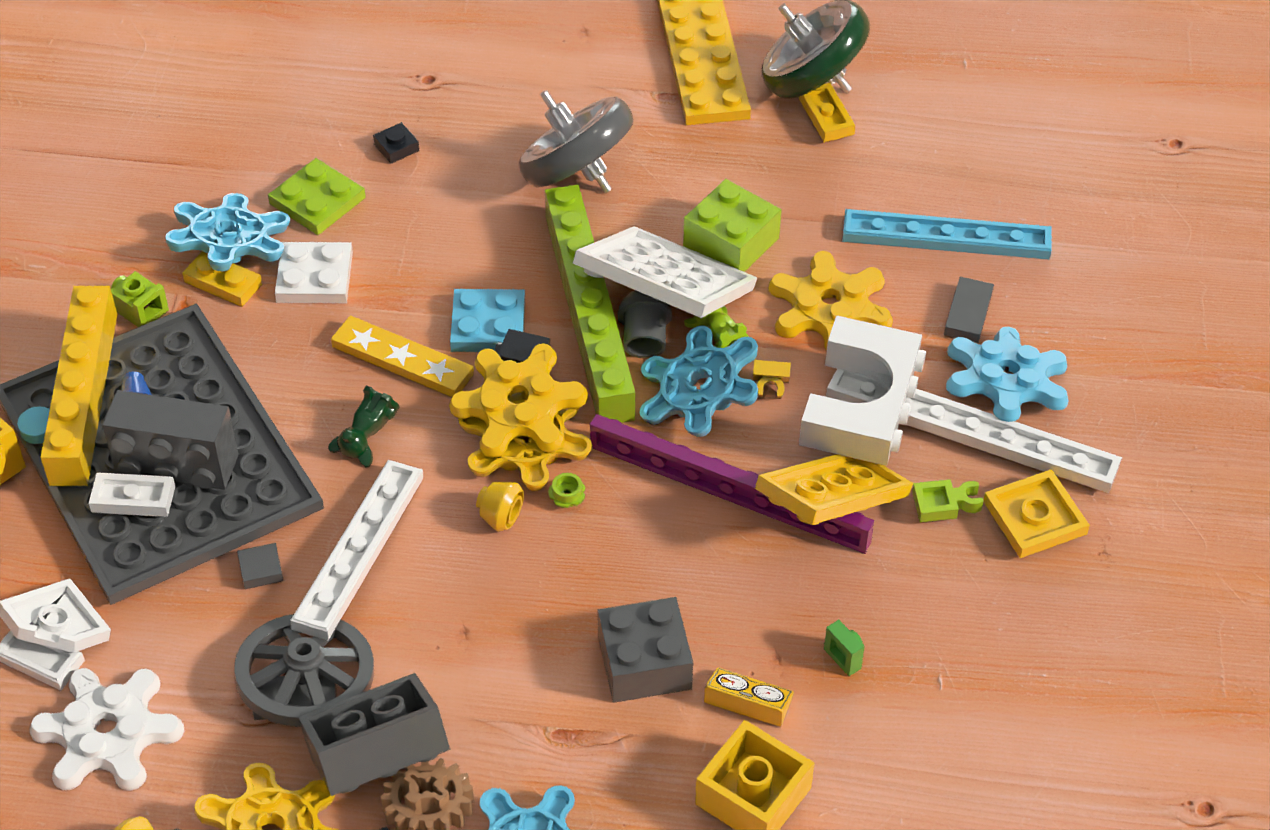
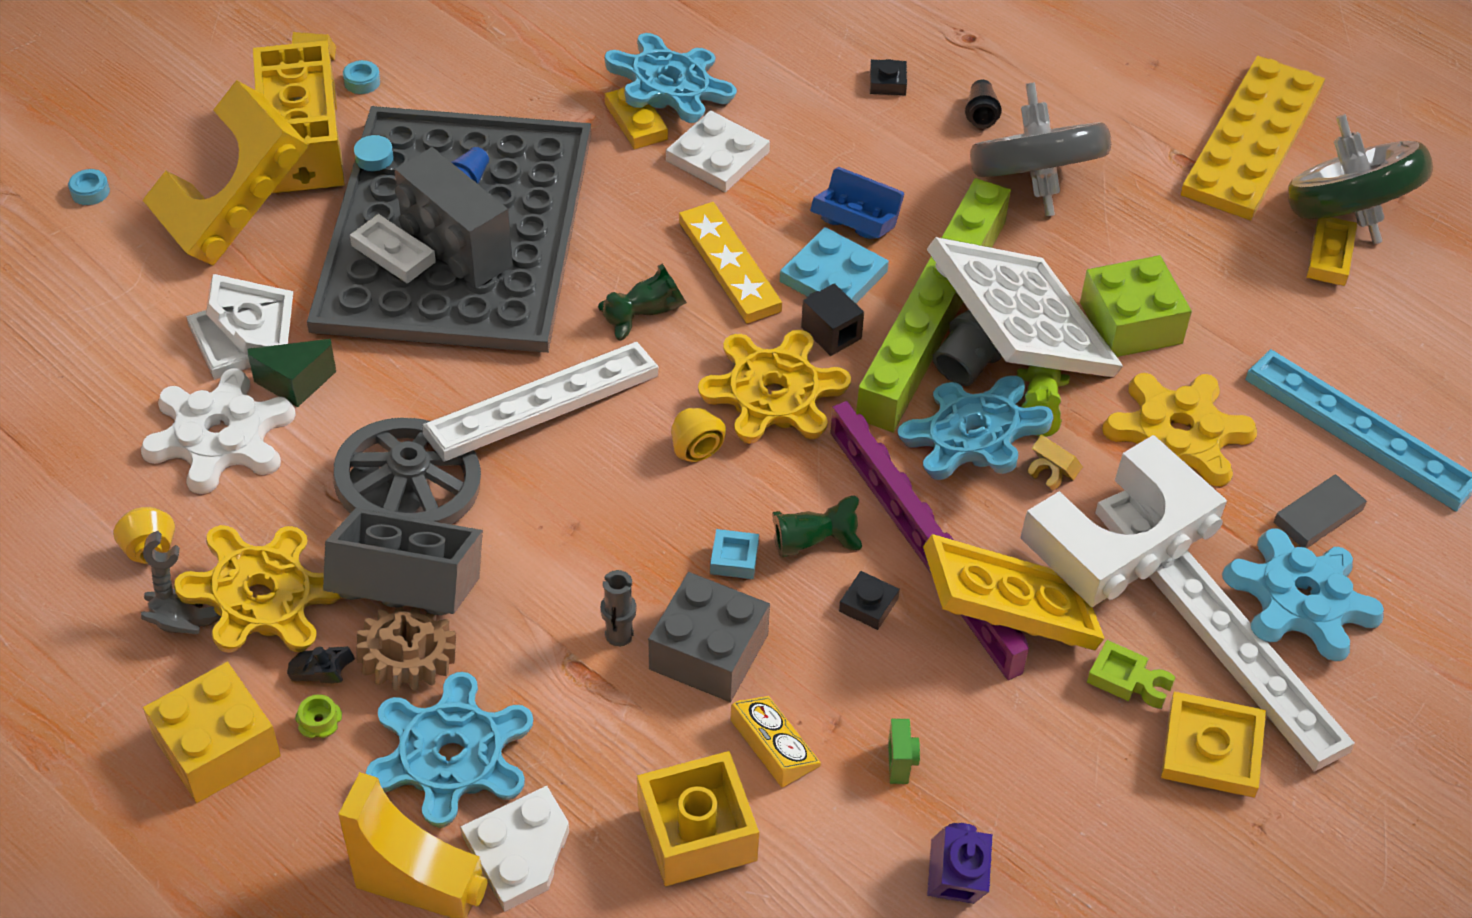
camera: 35 degrees right, 0 degrees up
(79, 386) = (441, 122): yellow brick -> none
(127, 643) = (293, 368): none -> dark green slope
(133, 294) = (547, 87): lime brick -> none
(260, 566) = (453, 370): dark grey tile -> none
(316, 196) = (777, 88): lime plate -> none
(466, 256) = (859, 204): none -> blue bracket
(490, 128) = (982, 105): none -> black cone
(529, 418) = (791, 371): yellow plate -> none
(567, 483) = (770, 457): lime plate -> none
(568, 668) = (618, 608): none -> dark grey pin
(606, 578) = (734, 554): none -> medium azure plate
(645, 528) = (808, 528): none -> dark green animal
(726, 554) = (869, 600): none -> black plate
(952, 698) = (960, 863): none -> dark purple brick

